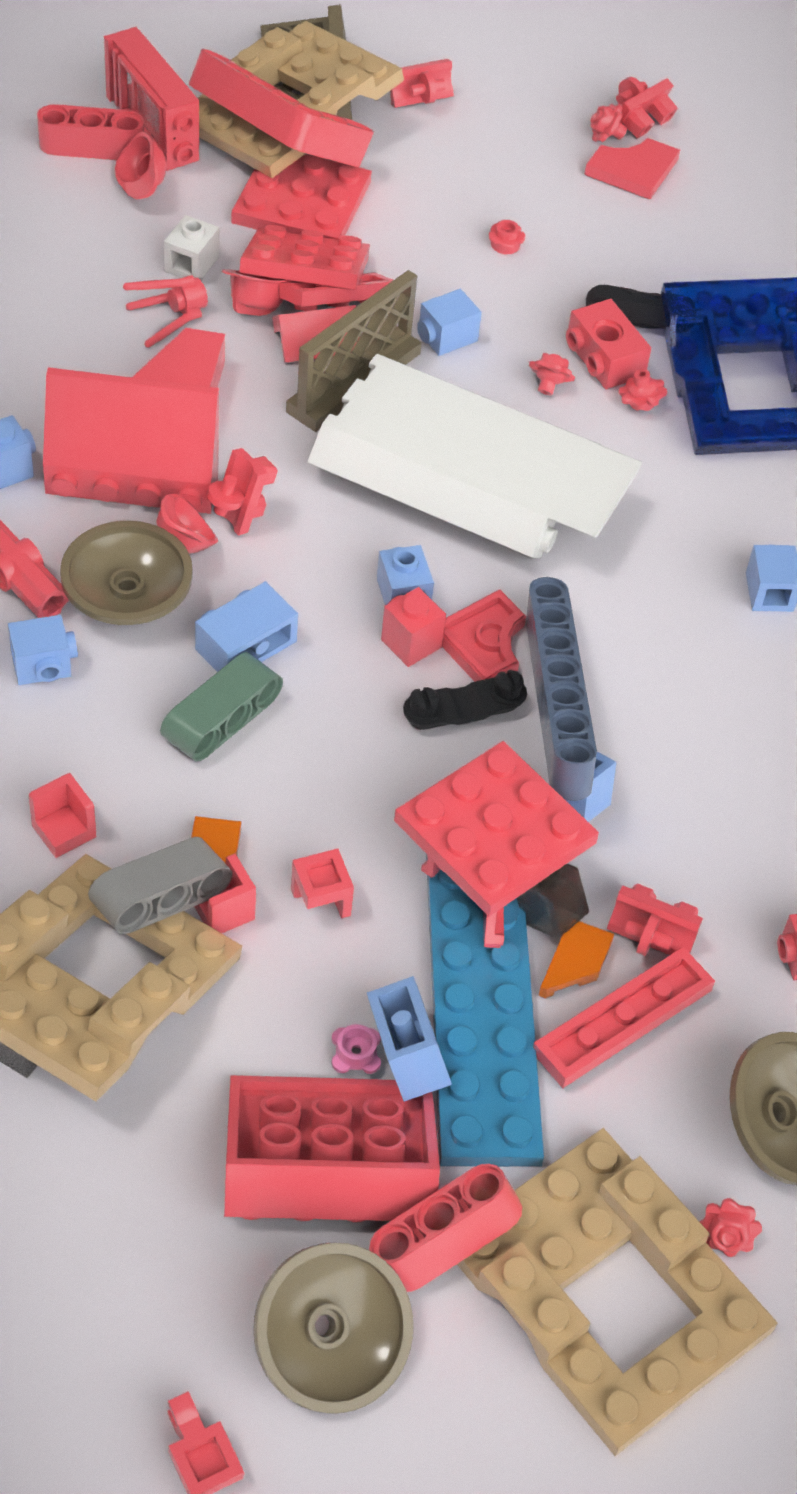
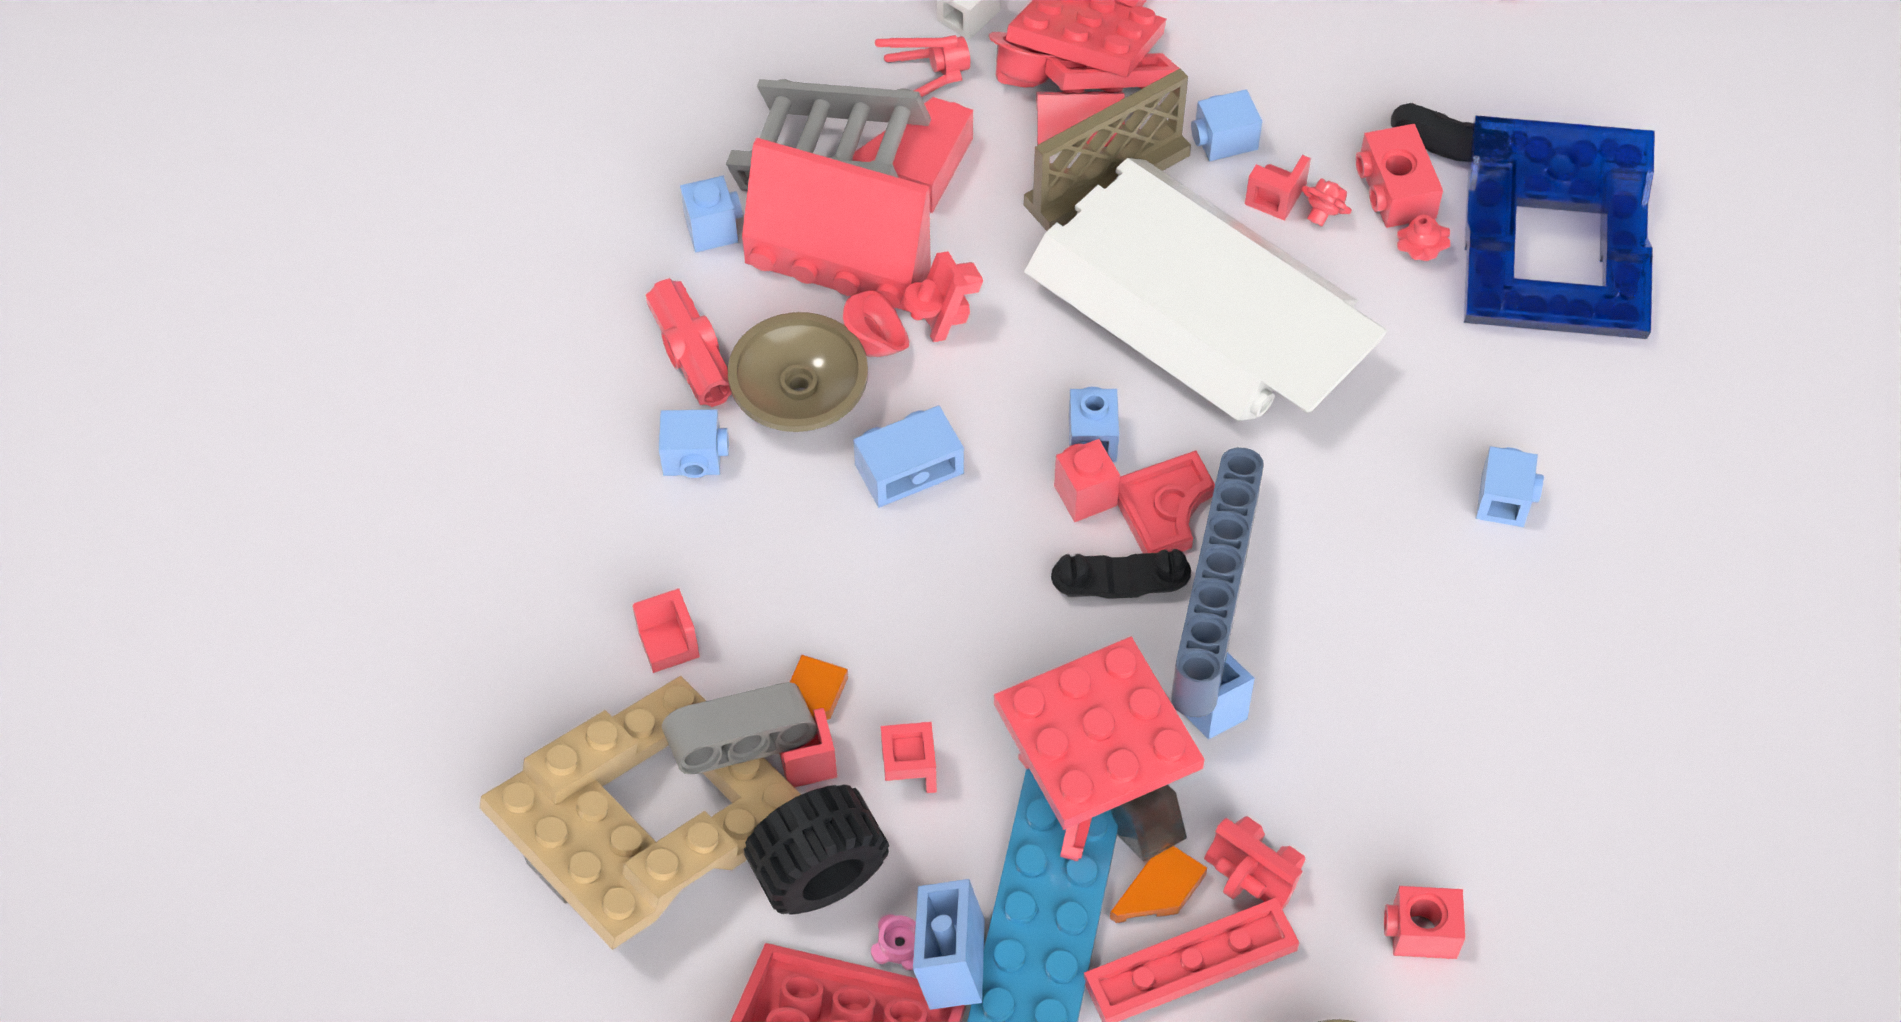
camera: 20 degrees right, 5 degrees up
(92, 342) = (835, 101): none -> light grey fence
(221, 706) = (861, 537): sand green beam -> none
(263, 977) = (816, 849): none -> black tyre
(505, 370) = (1276, 189): none -> coral panel
(506, 237) = (1323, 28): coral plate -> none

